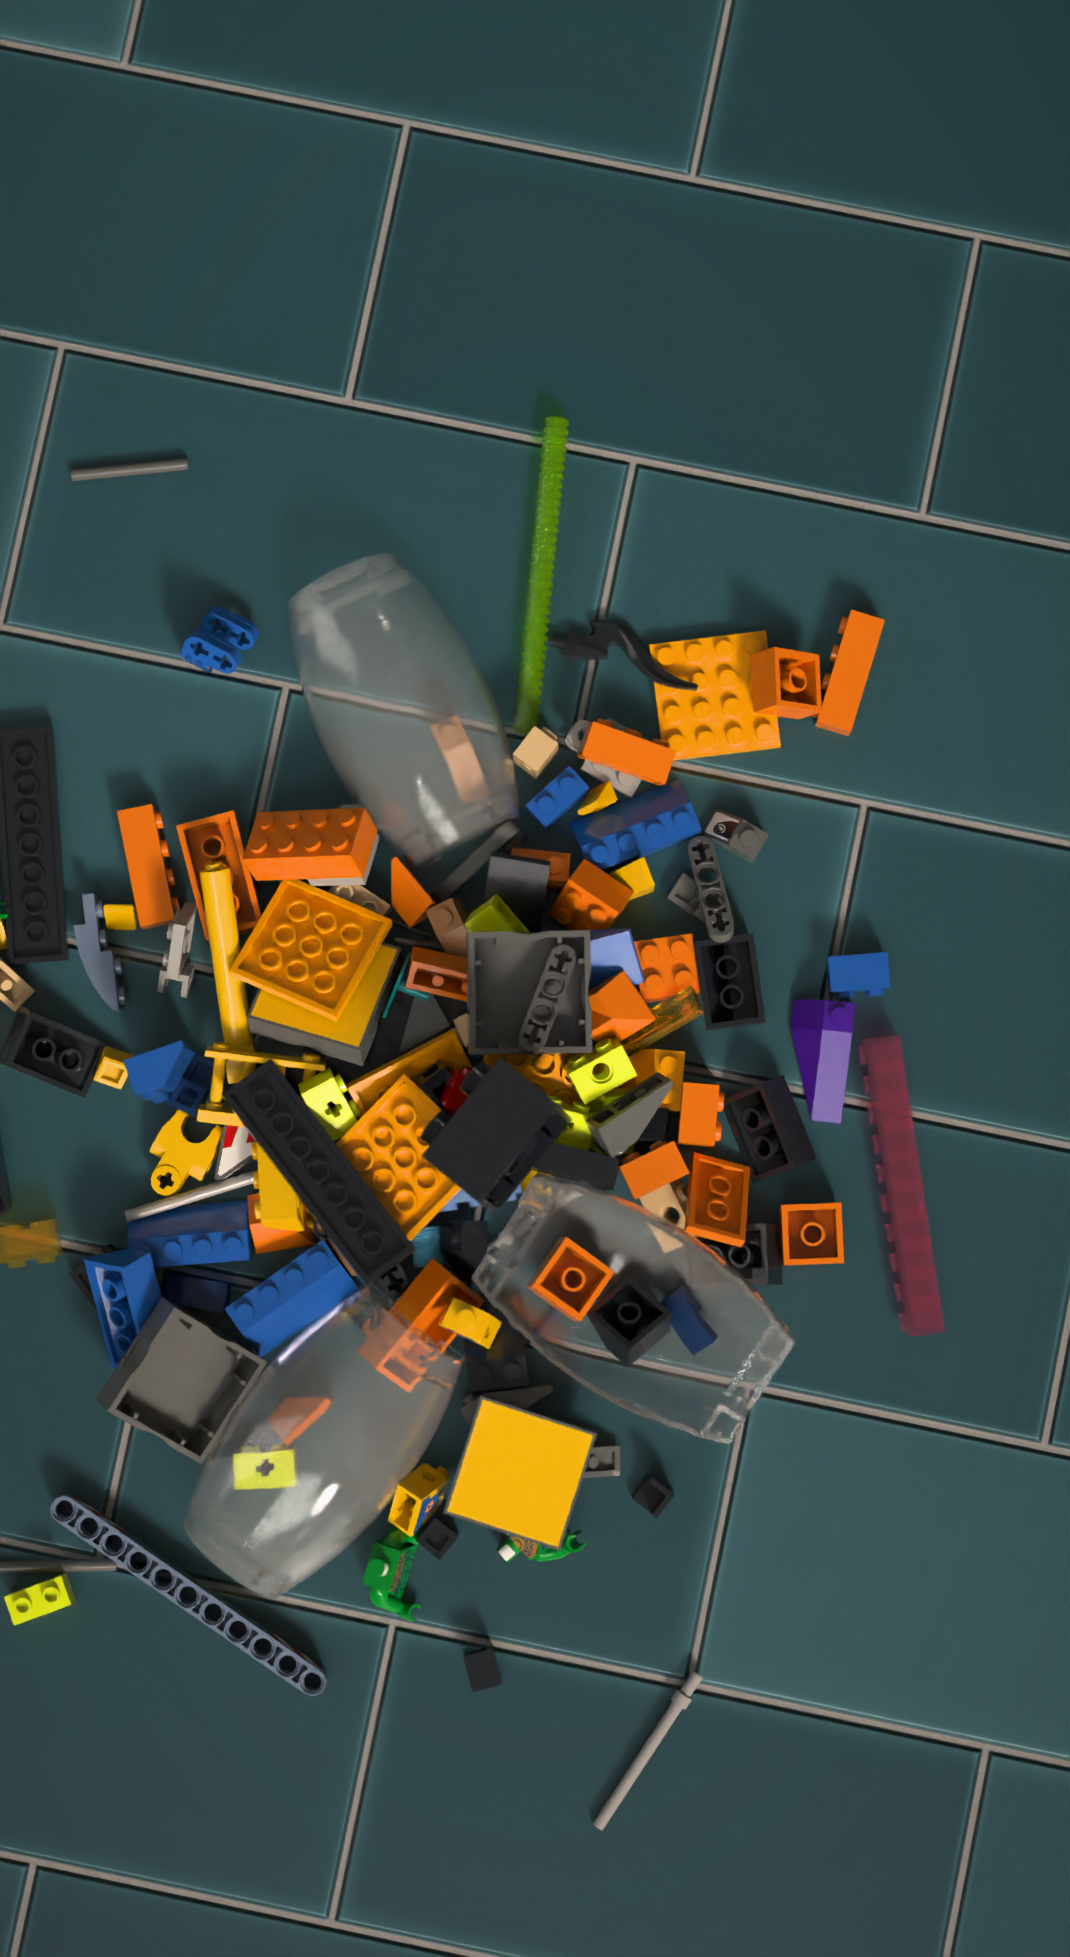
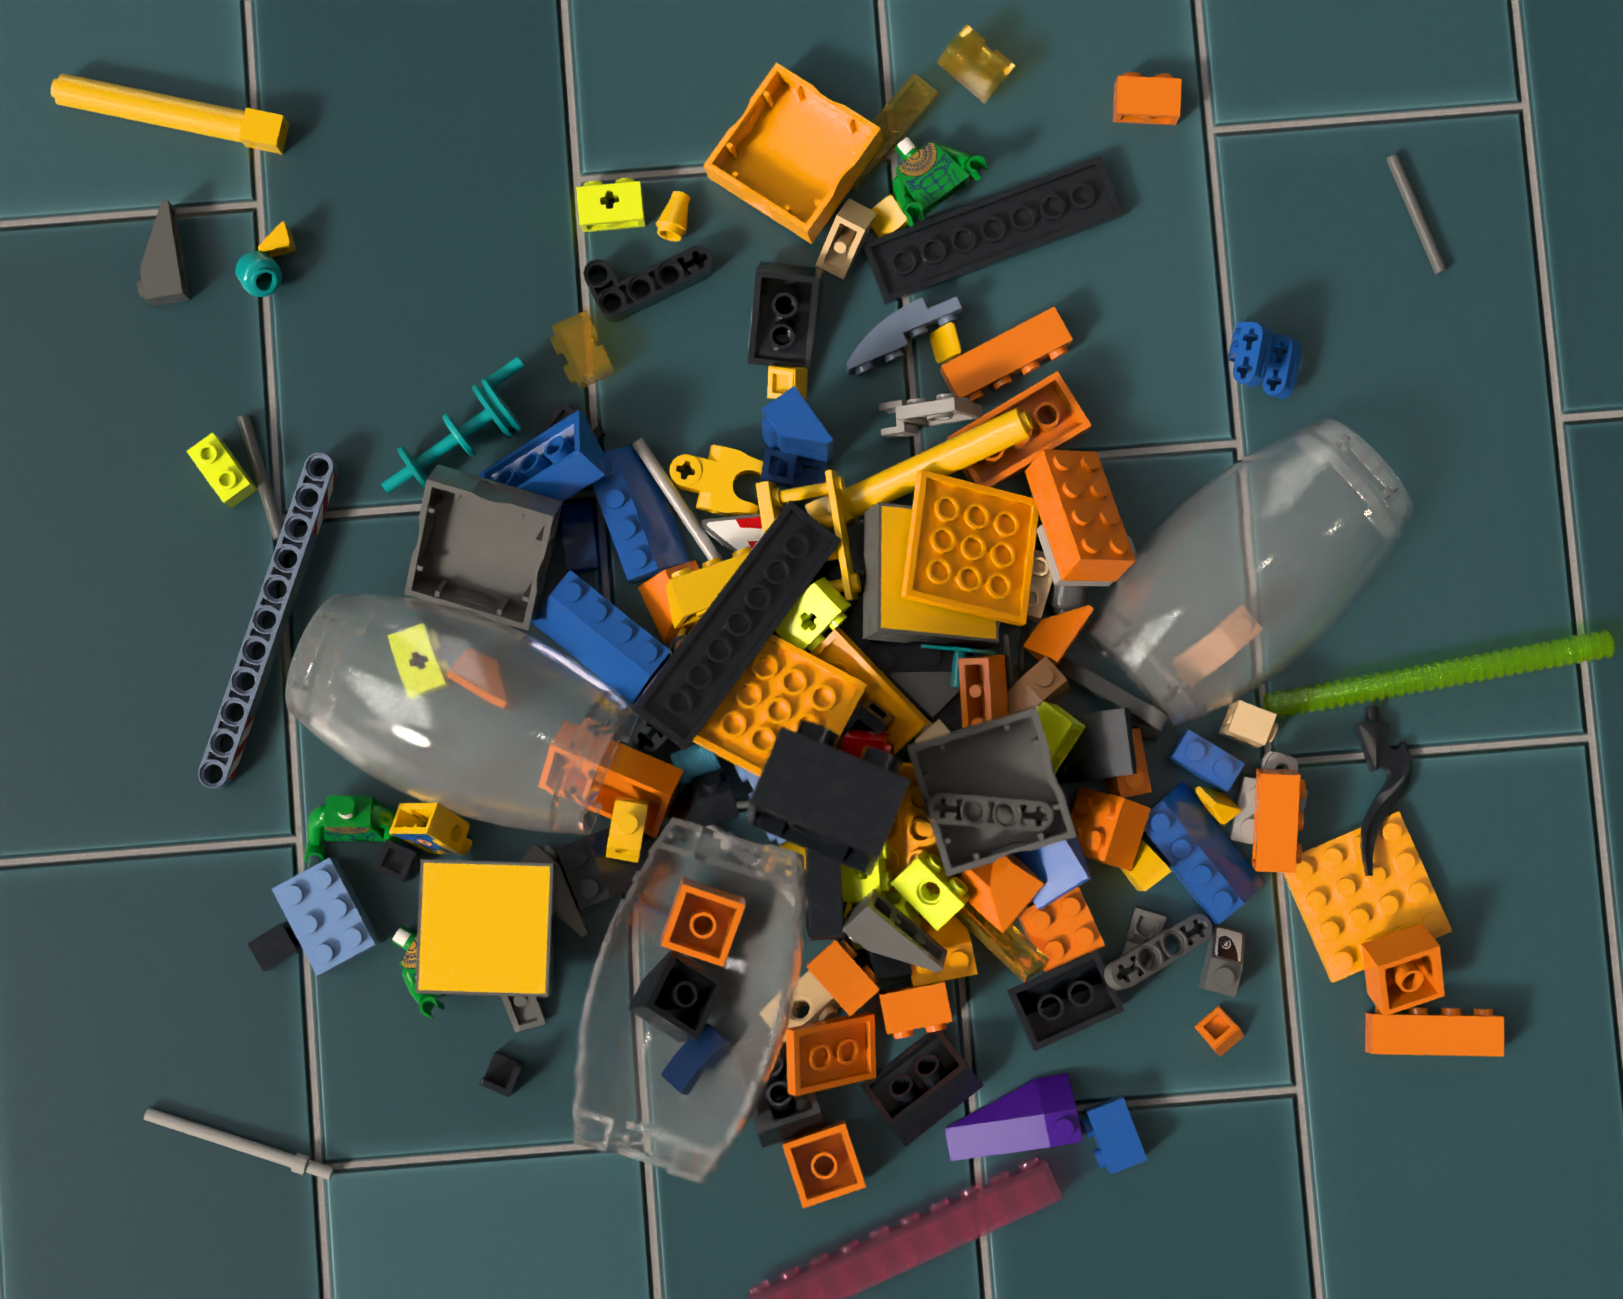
camera: 70 degrees right, 0 degrees up
(59, 1335) = (494, 409): none -> teal piece
(379, 876) = (1067, 597): none -> dark grey head
(468, 1614) = (326, 916): none -> medium blue brick
(795, 856) = (1219, 1031): none -> orange slope

